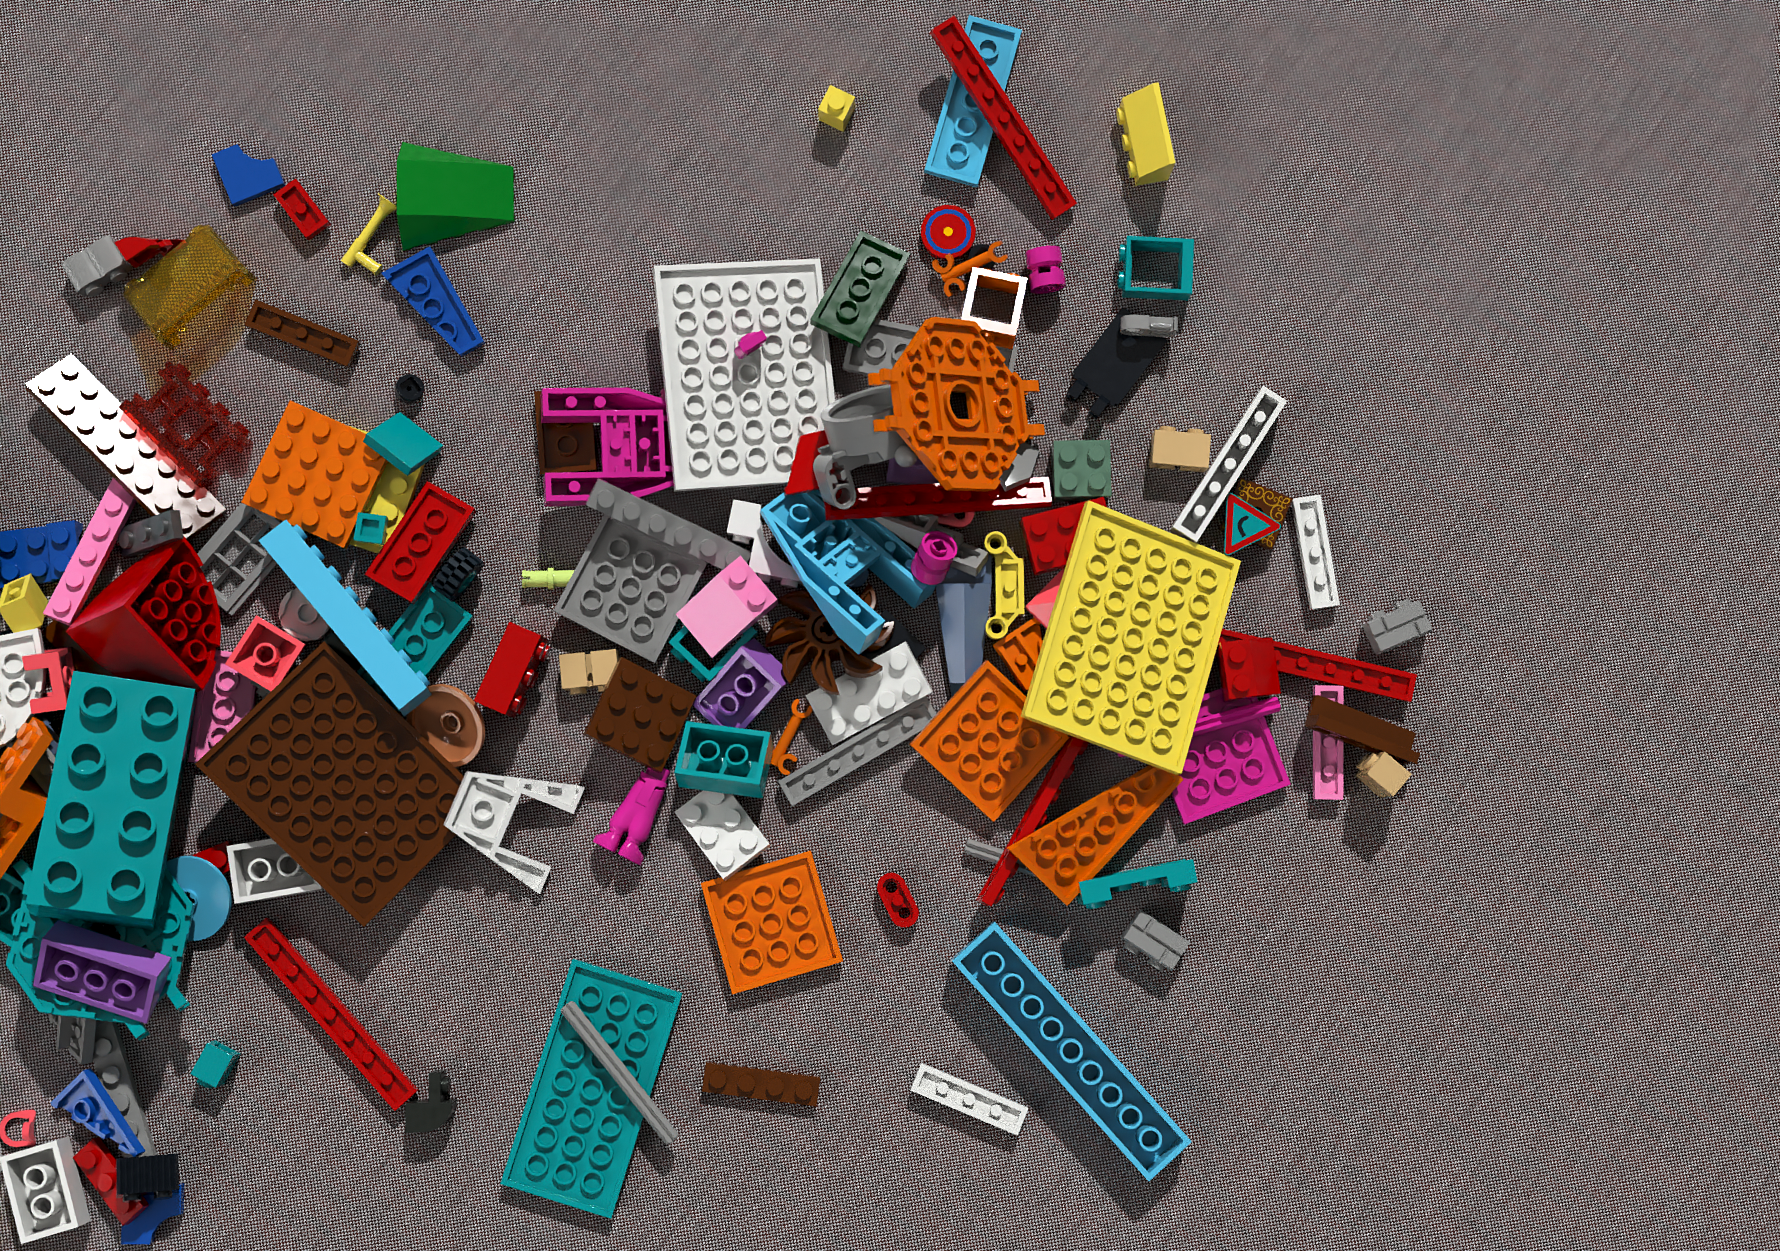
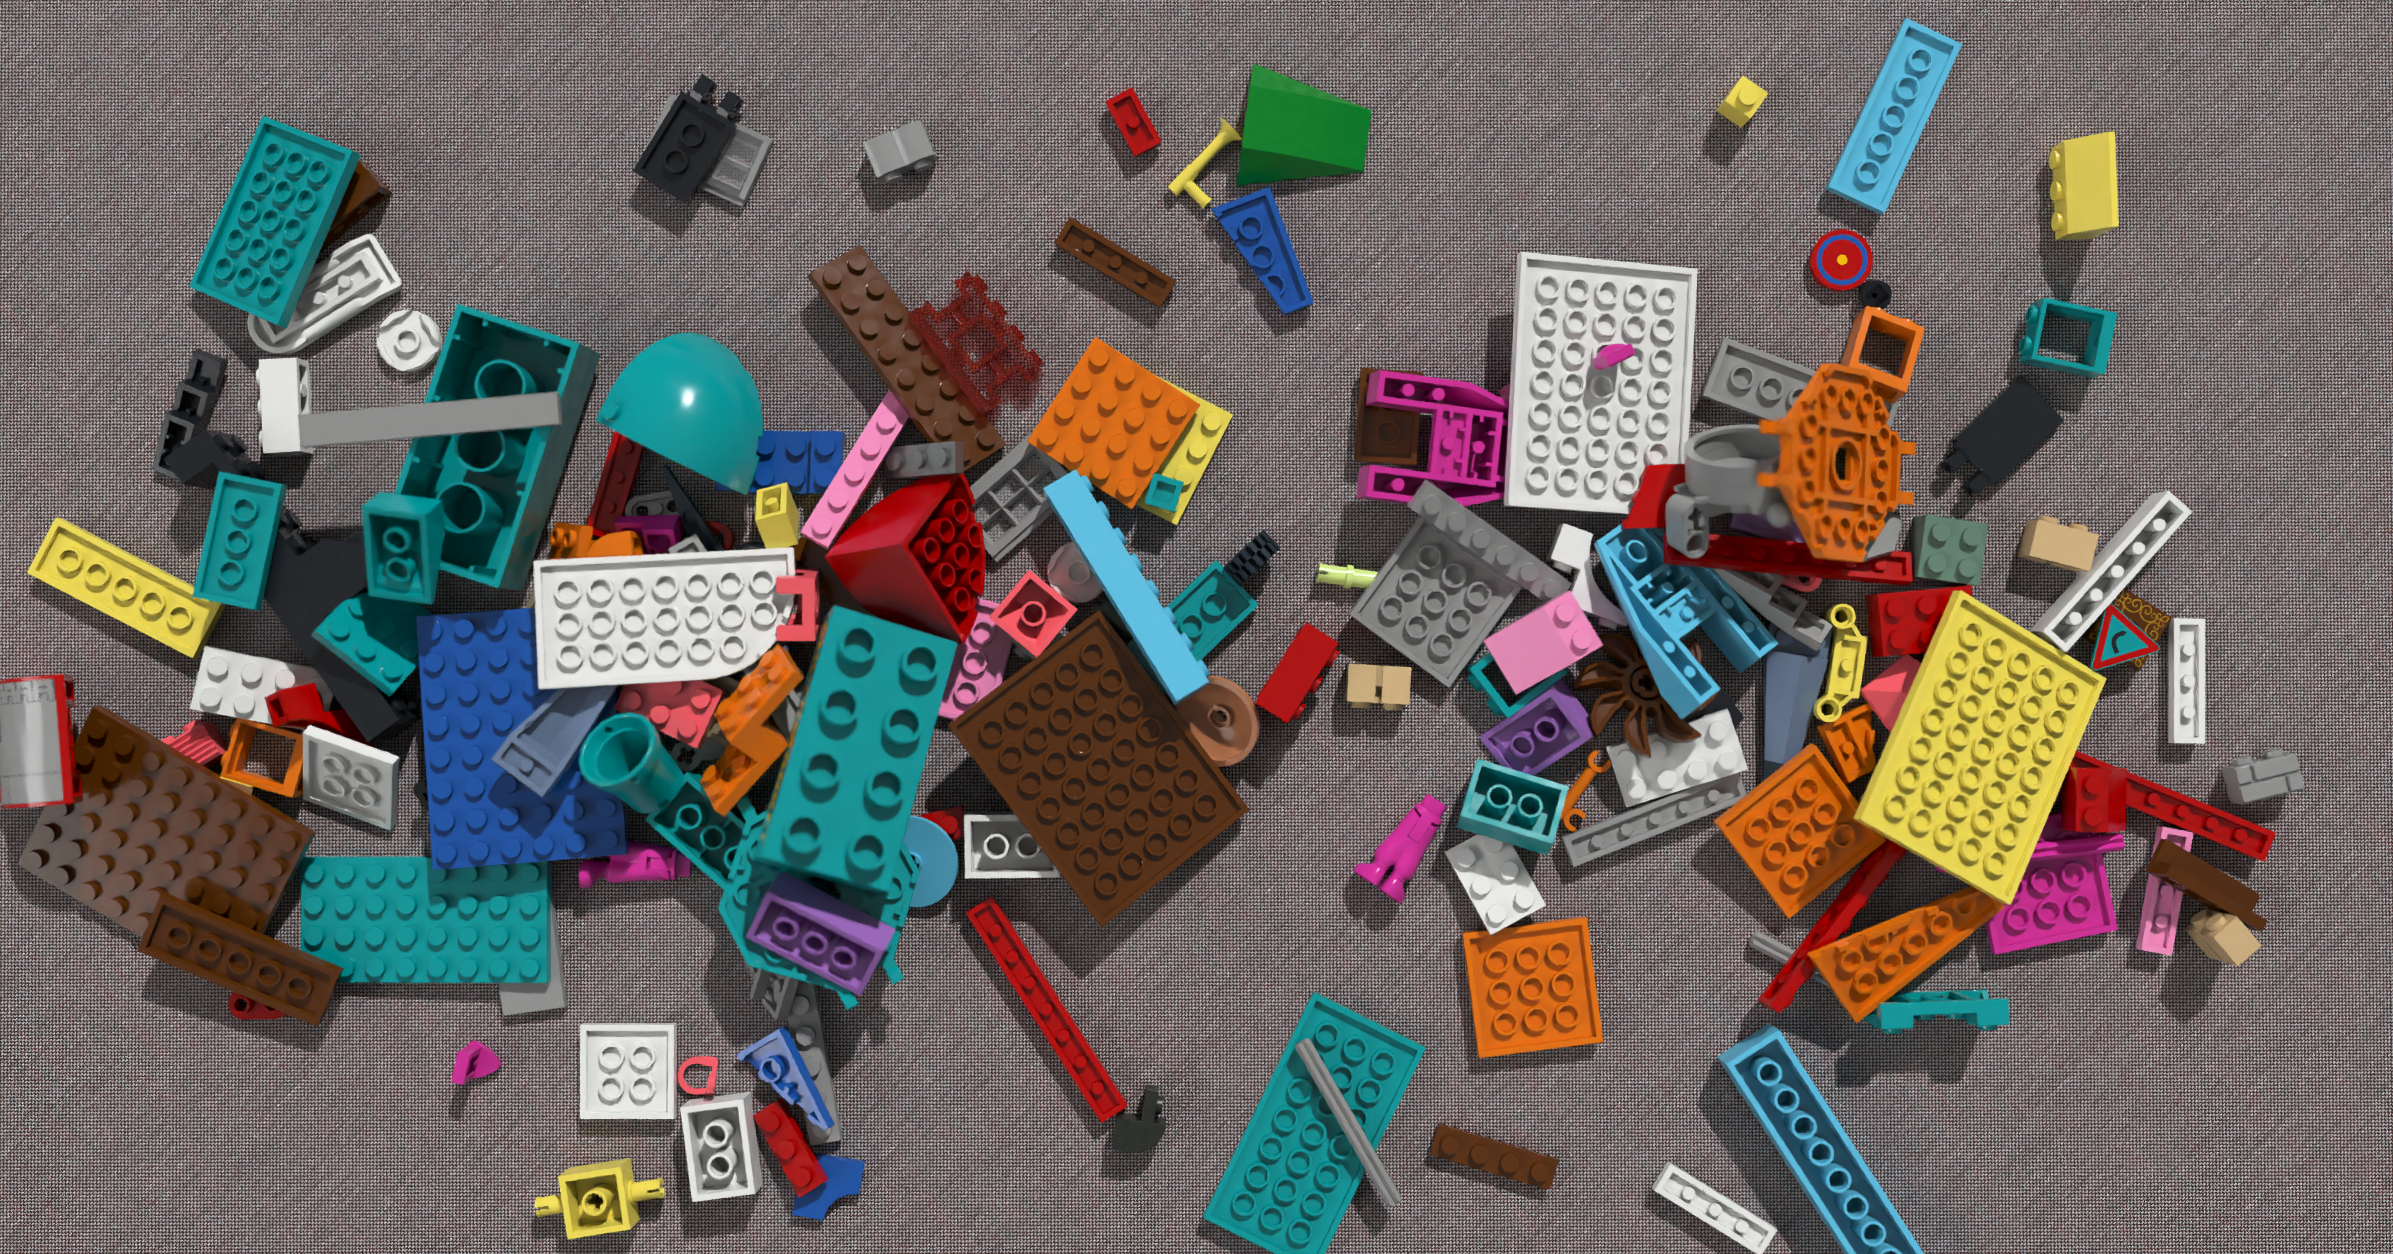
camera: 15 degrees right, 5 degrees up
(140, 250) = (956, 142): red slope -> none
(147, 1176) = (832, 1152): black brick -> none
(185, 283) = (997, 187): clear yellow windscreen -> none
(214, 1064) = (916, 1043): teal brick -> none
(245, 176) = (1076, 75): blue tile -> none
(403, 443) = (1211, 403): teal tile -> none
(409, 388) = (1223, 342): black tile -> none
(420, 543) = (1214, 516): red plate -> none
(484, 811) = (1246, 820): white wing -> none
(639, 715) = (1426, 743): reddish brown plate -> none
(860, 289) = (1737, 310): dark green plate -> none
(897, 900) = (1671, 983): red plate -> none
(933, 557) = (1778, 625): dark pink wheel -> none
(951, 274) = (1838, 308): orange bar -> none
(1003, 117) = (1927, 142): red plate -> none
(1044, 260) = (1944, 309): dark pink wheel -> none
(1149, 326) = (2050, 402): light grey piece -> none
(1154, 940) = (1941, 1073): light grey brick -> none

